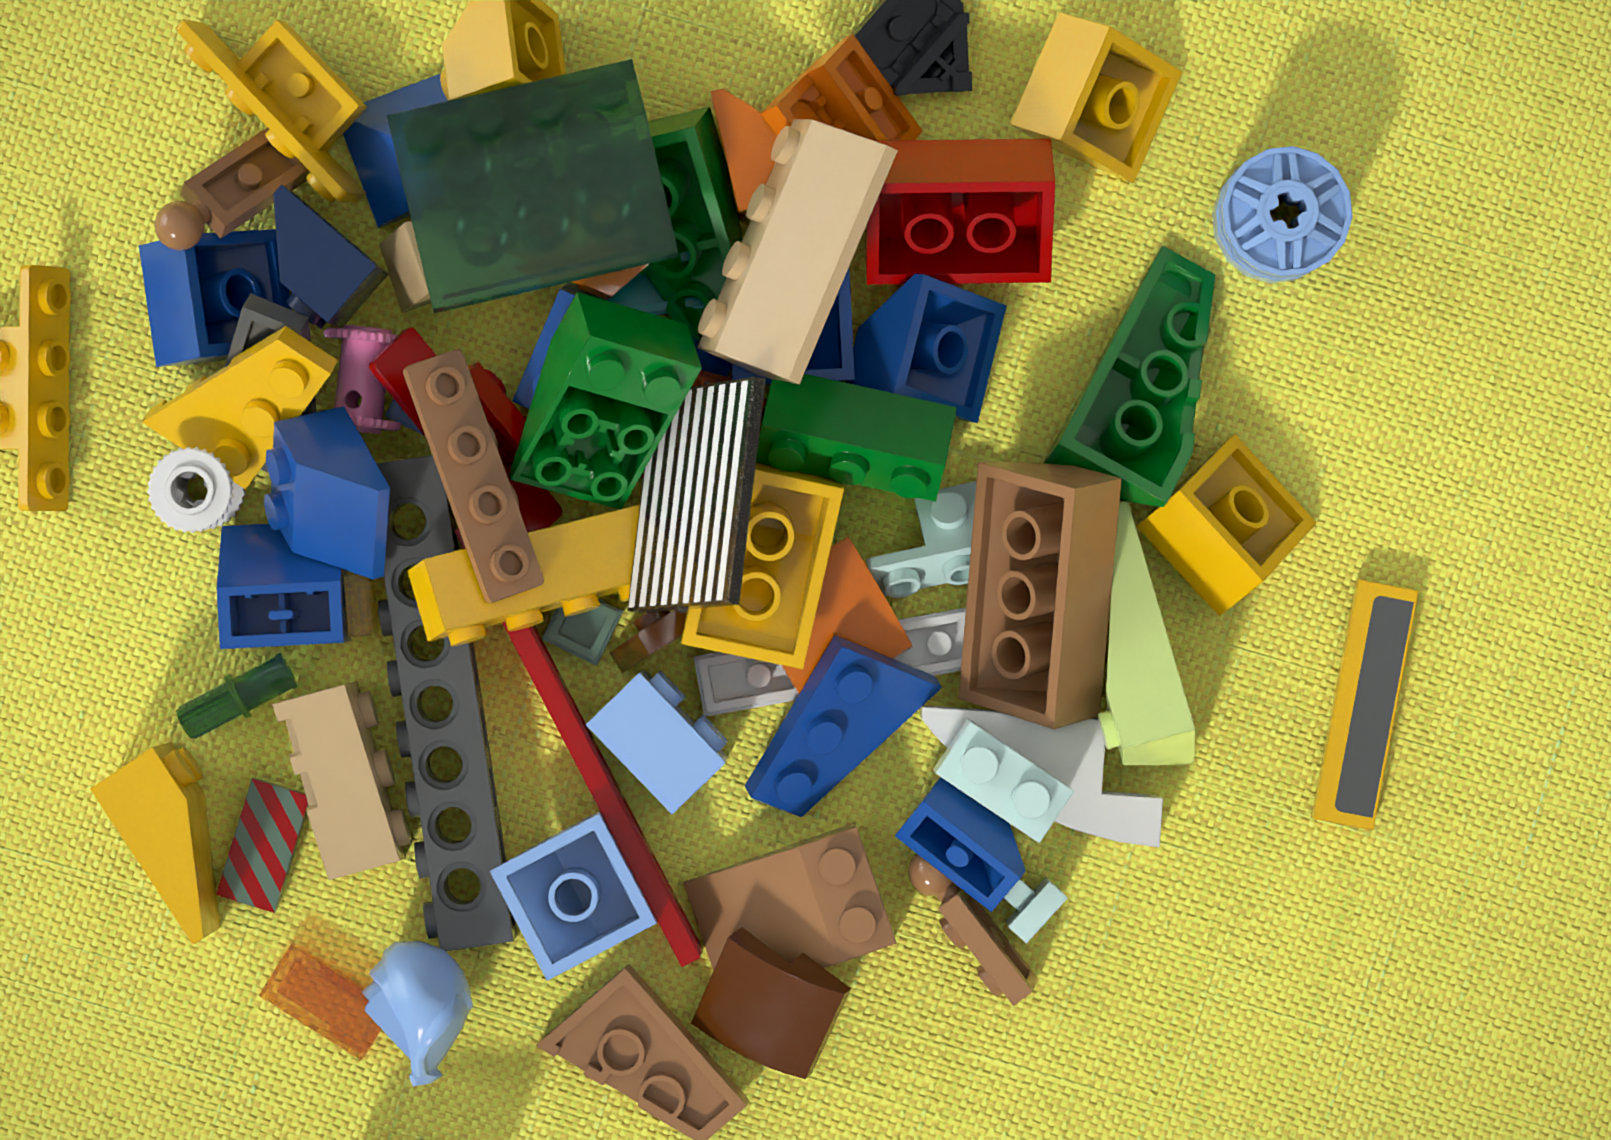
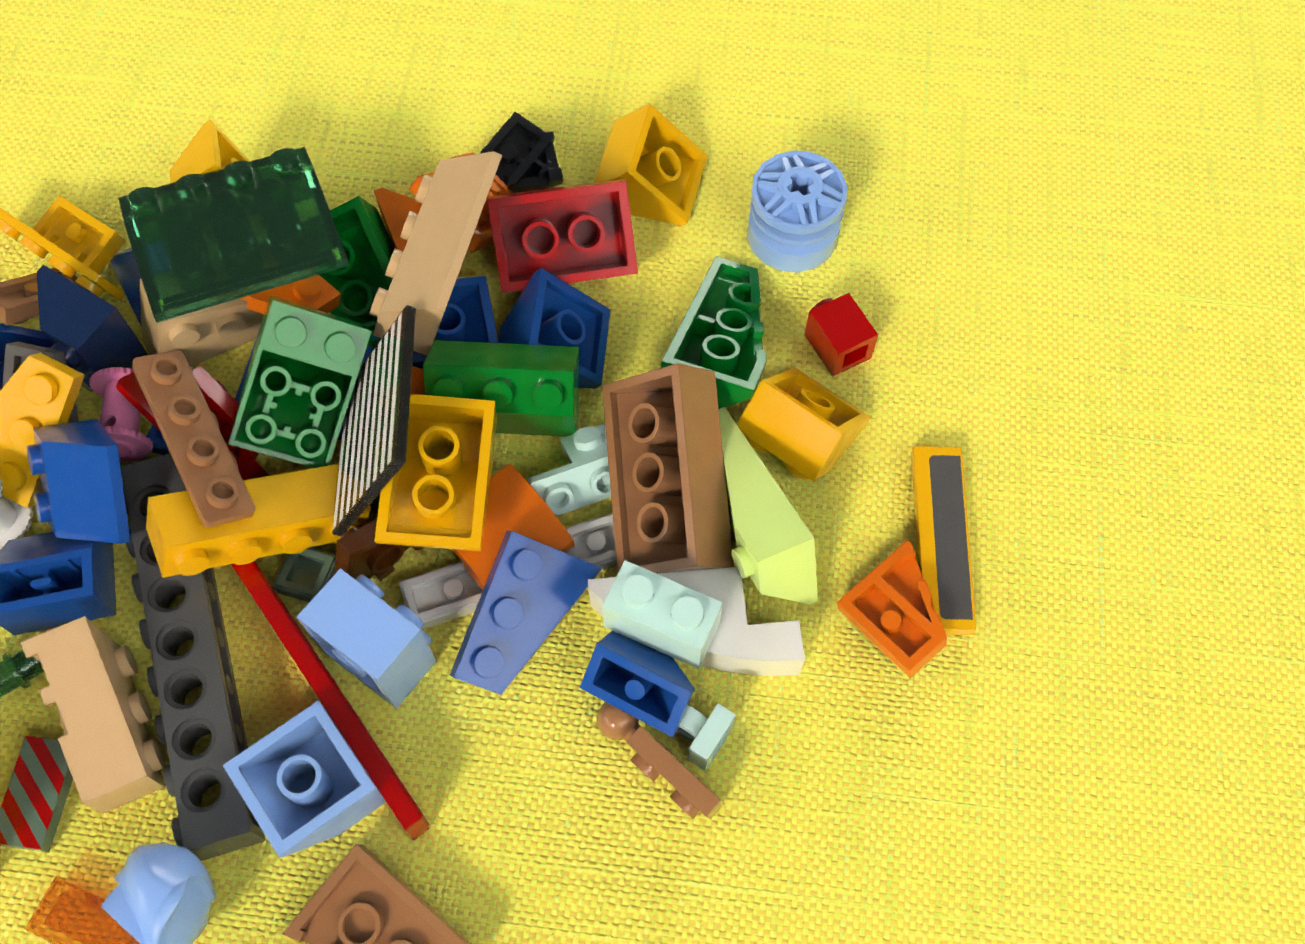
camera: 10 degrees left, 25 degrees down
(360, 605) = (117, 580): clear yellow tile -> none
(770, 1006) = (489, 854): reddish brown slope -> none
(797, 900) = (501, 773): medium nougat slope -> none
(1284, 794) = (897, 611): none -> orange wing
(1301, 402) = (840, 334): none -> red brick

